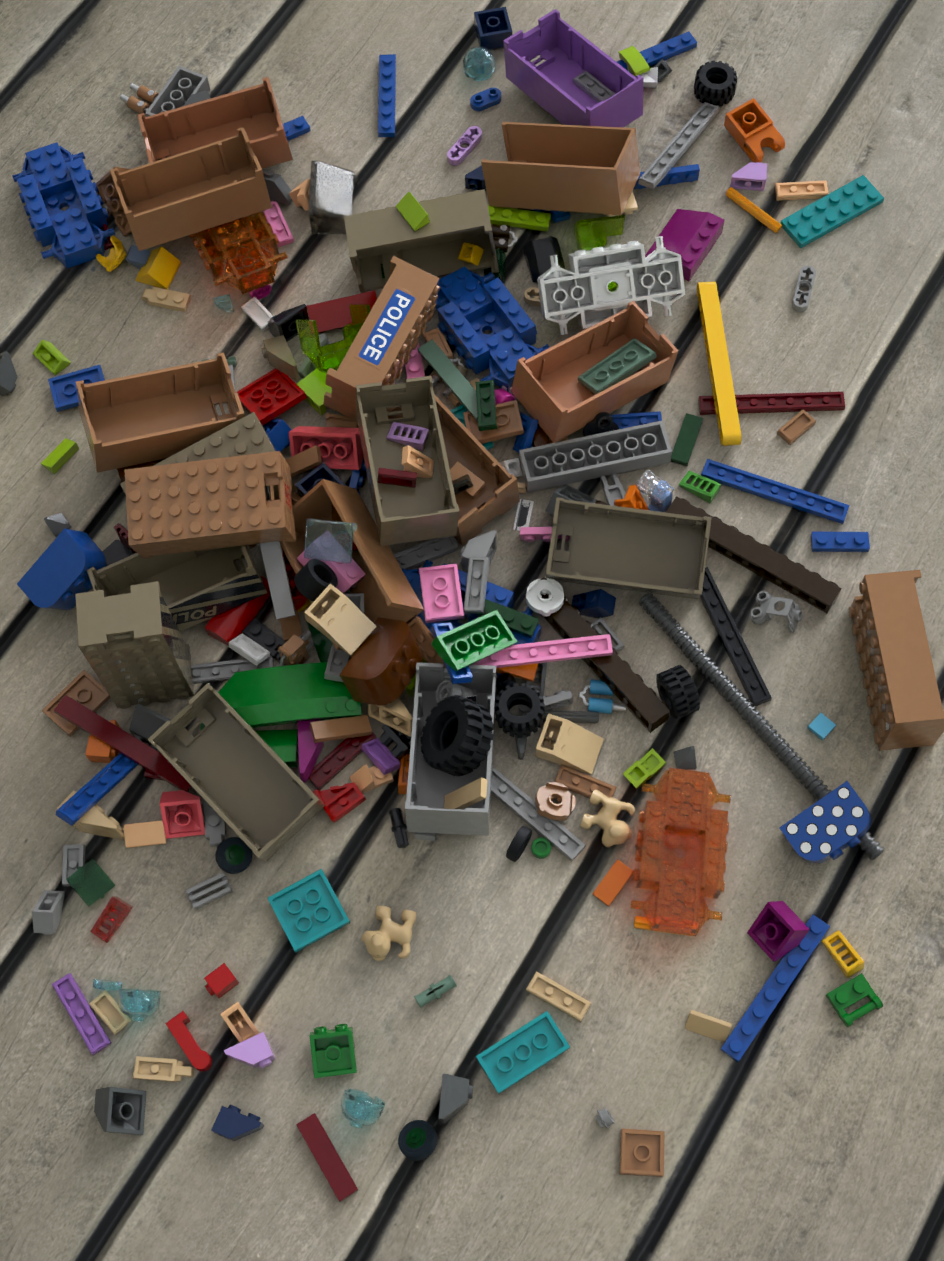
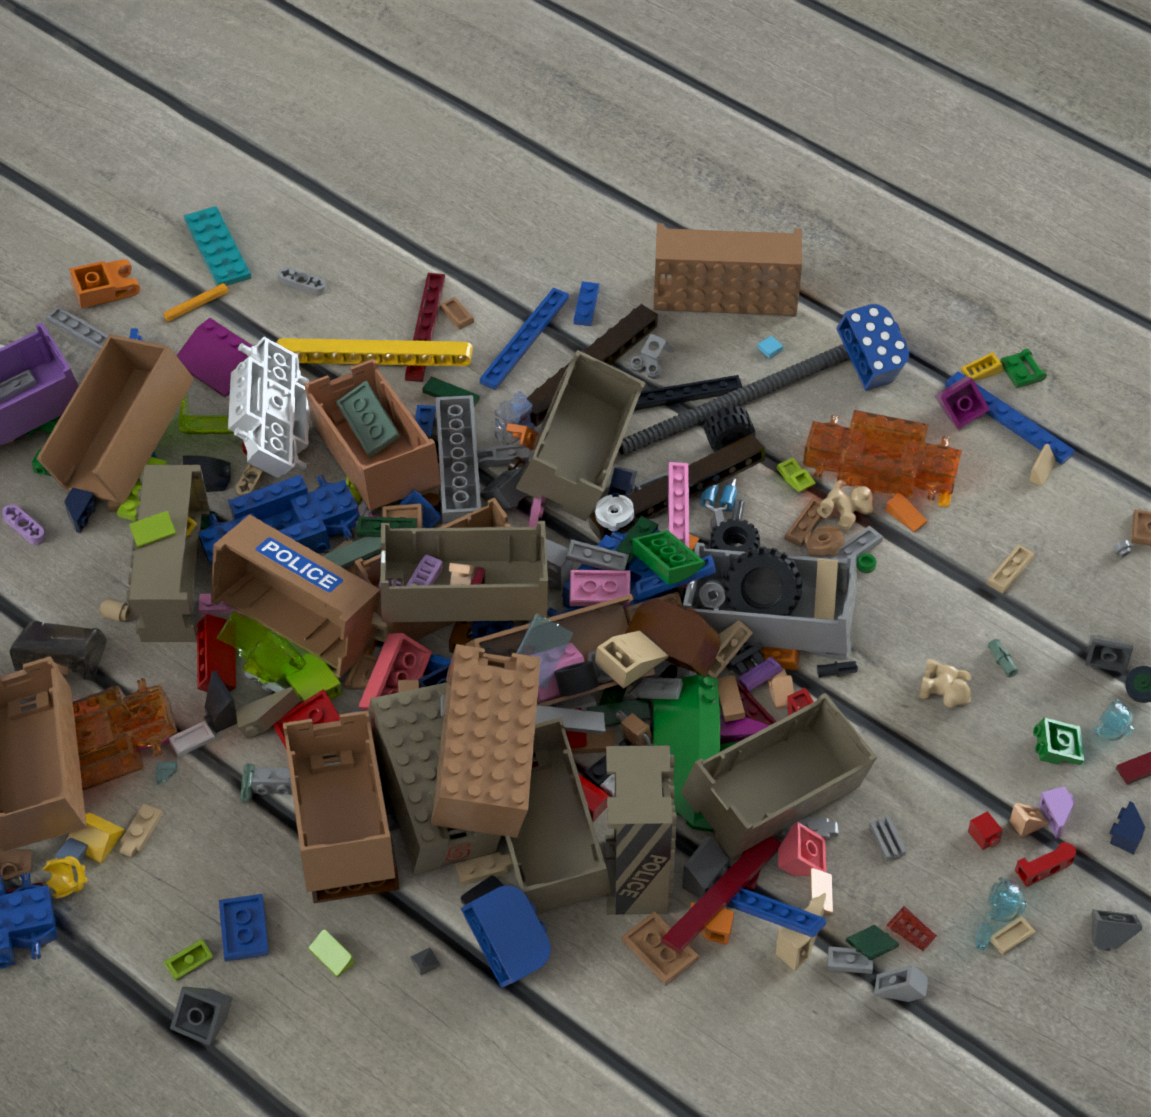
camera: 85 degrees left, 15 degrees down
(81, 1014) = (1011, 963): medium lavender tile -> none
(122, 533) = (472, 877): dark red tile -> none
(161, 1069) = (1073, 891): tan hinge -> none
(233, 855) = (854, 808): black wheel -> none
(308, 910) = (916, 752): teal plate -> none
(519, 843) = (873, 570): black tyre -> none
(522, 1052) = (1063, 599): teal plate -> none
(568, 744) = (771, 523): tan slope -> none
(685, 758) = (789, 445): dark grey slope -> none
(708, 483) = (513, 381): bright green slope -> none
(725, 81) = (28, 302): black tyre -> none
(750, 177) = (157, 294): lavender slope -> none
(801, 190) = (183, 264): light nougat tile -> none

